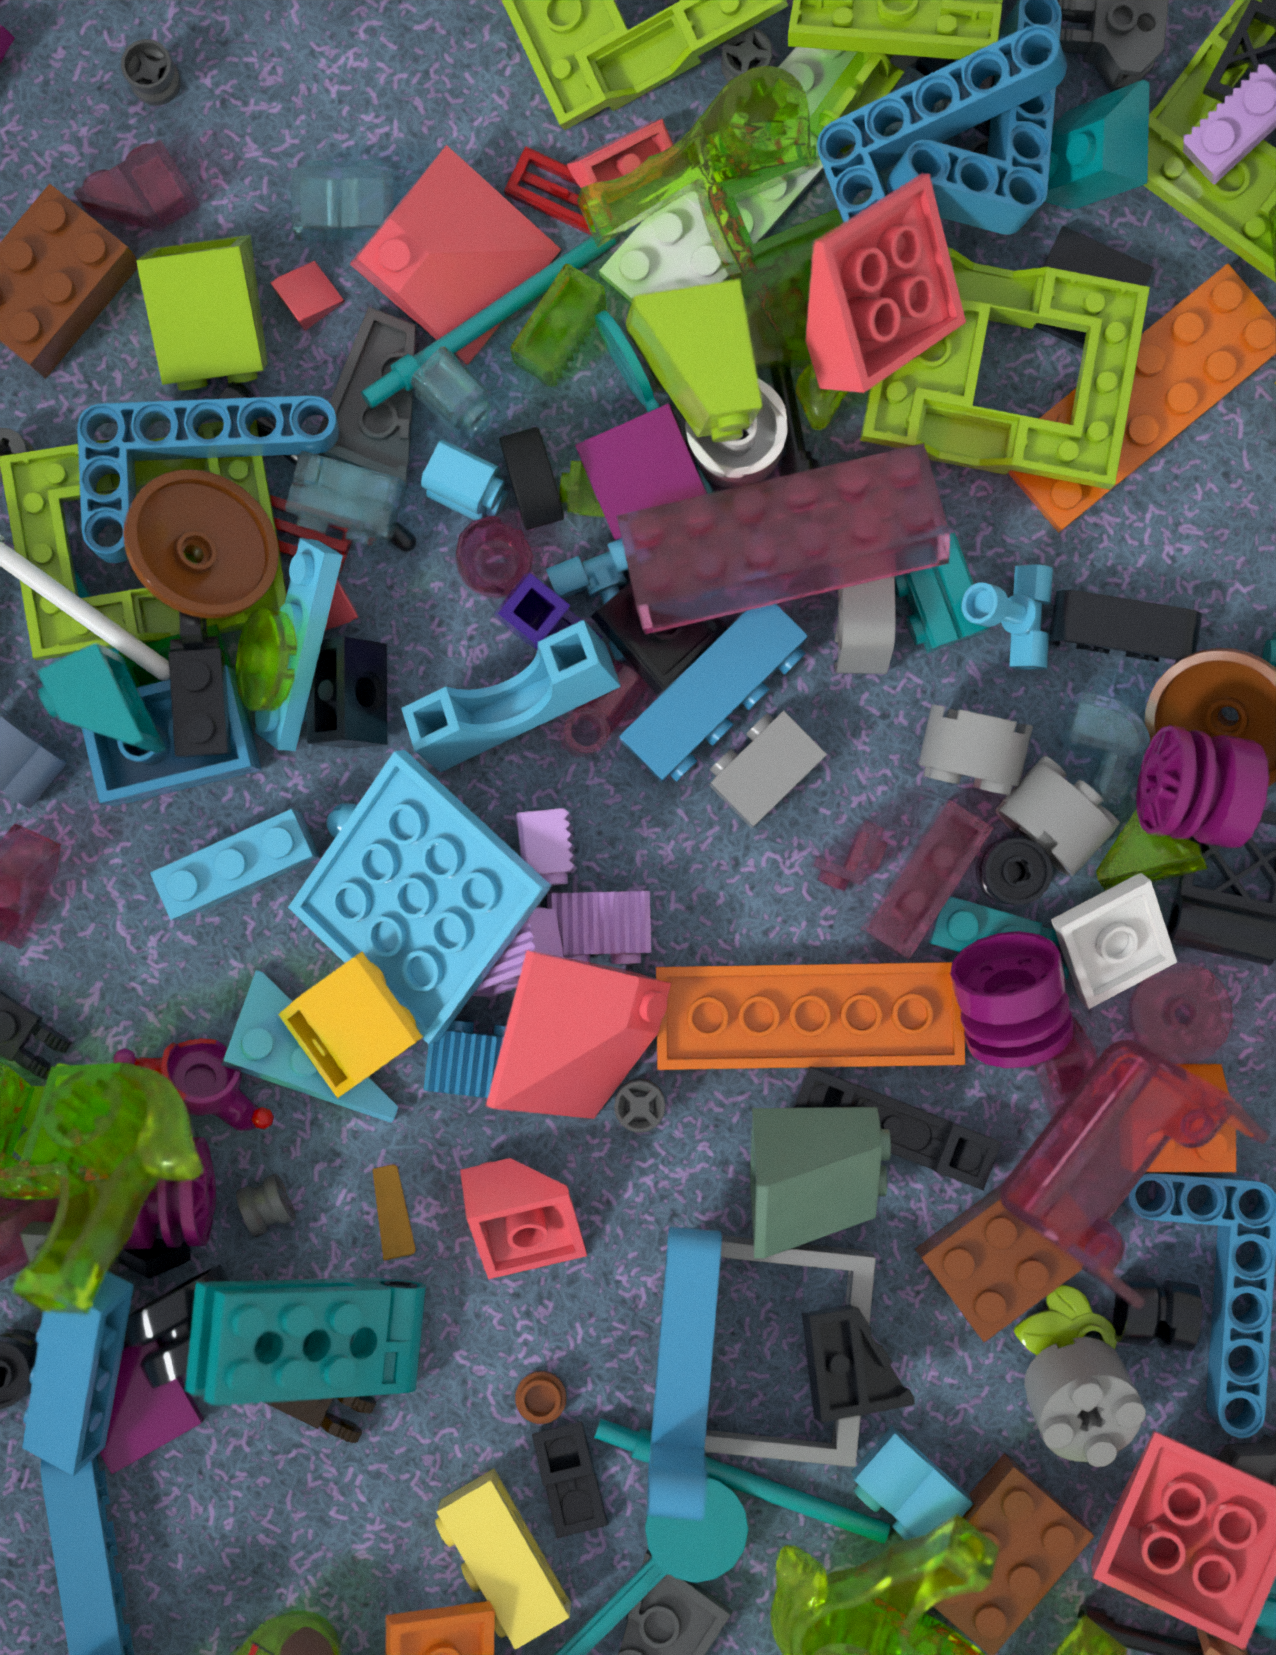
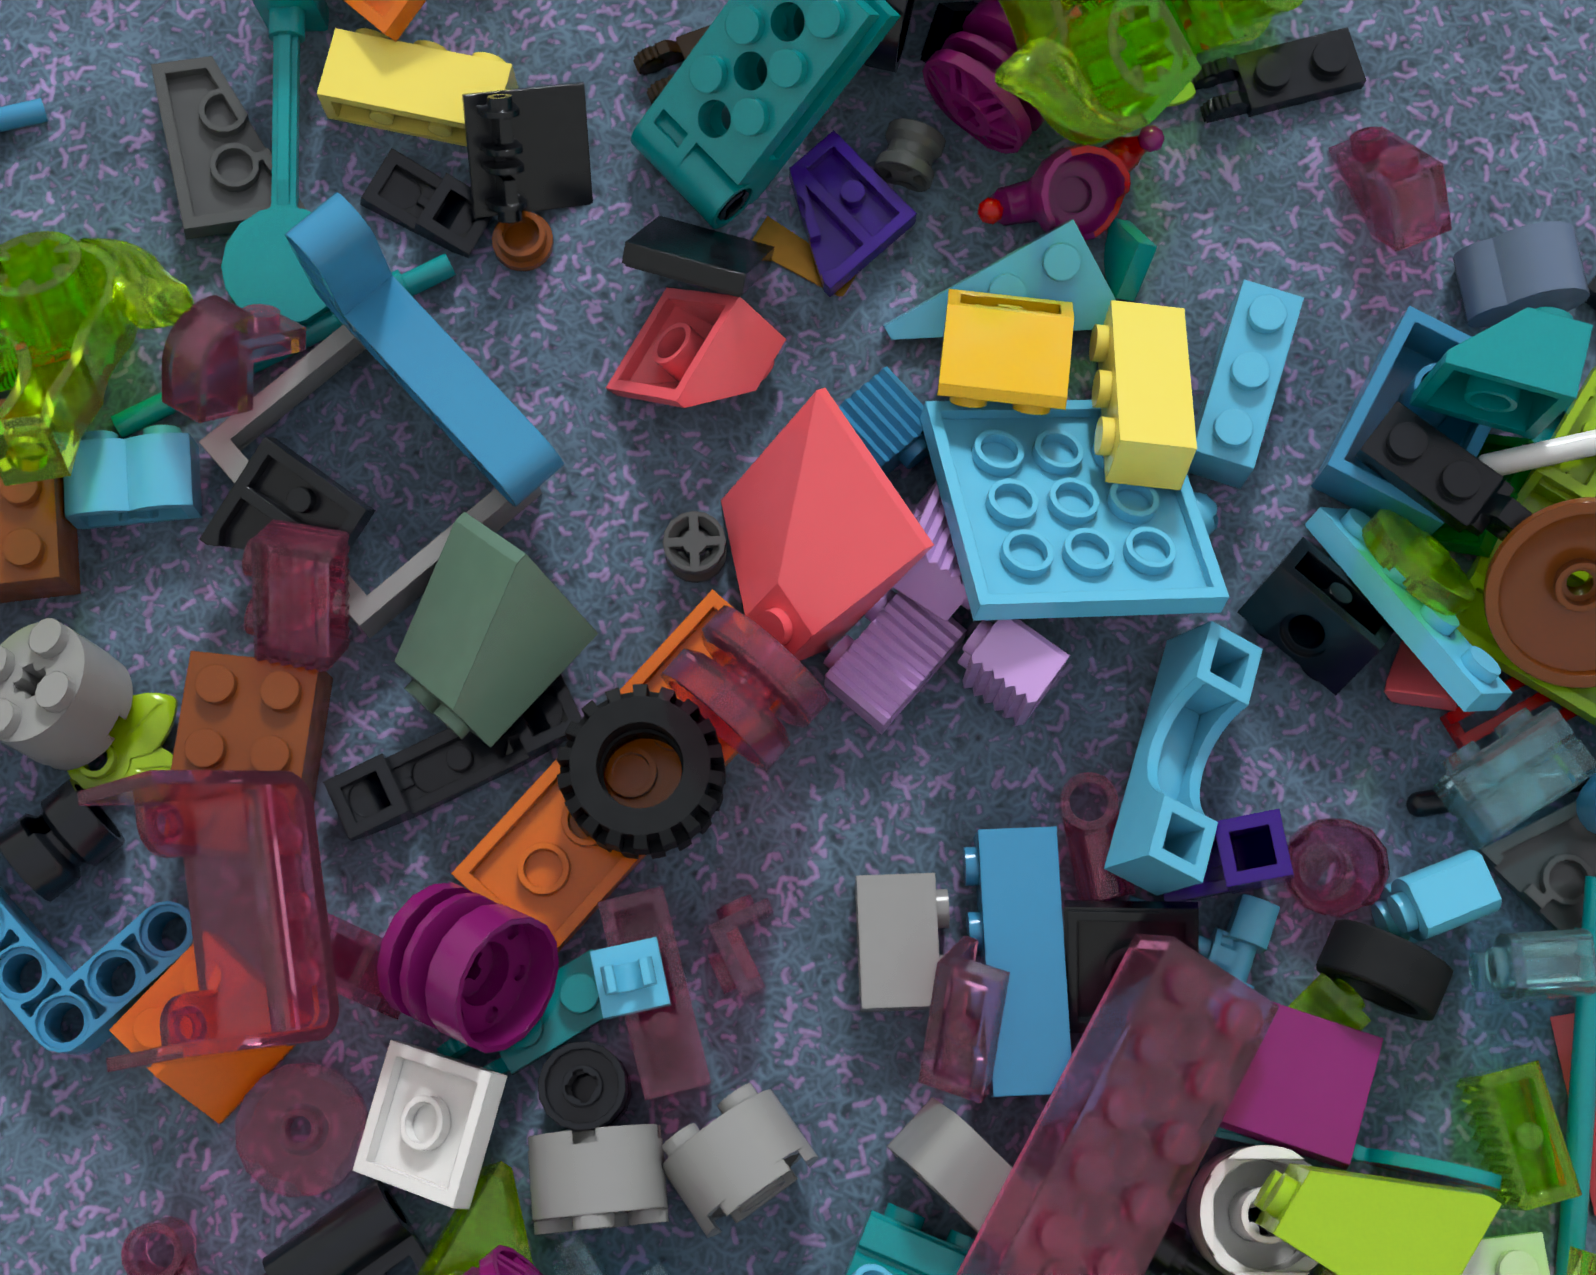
camera: 130 degrees right, 10 degrees down
(212, 1009) = (1126, 258): none -> teal tile
(302, 916) = (1143, 395): none -> light yellow brick
(338, 1213) = (845, 210): none -> dark purple wing
(457, 1272) = (698, 256): none -> black tile
(484, 1446) = (527, 150): none -> black hinge
(708, 987) = (746, 686): none -> clear pink wheel
(784, 687) = (963, 1023): none -> clear pink panel
(795, 1508) = (214, 354): none -> clear pink brick
(855, 1013) = (630, 718): none -> black tyre
(895, 1308) = (298, 594): none -> clear pink brick
(936, 898) = (630, 978): none -> medium azure tile

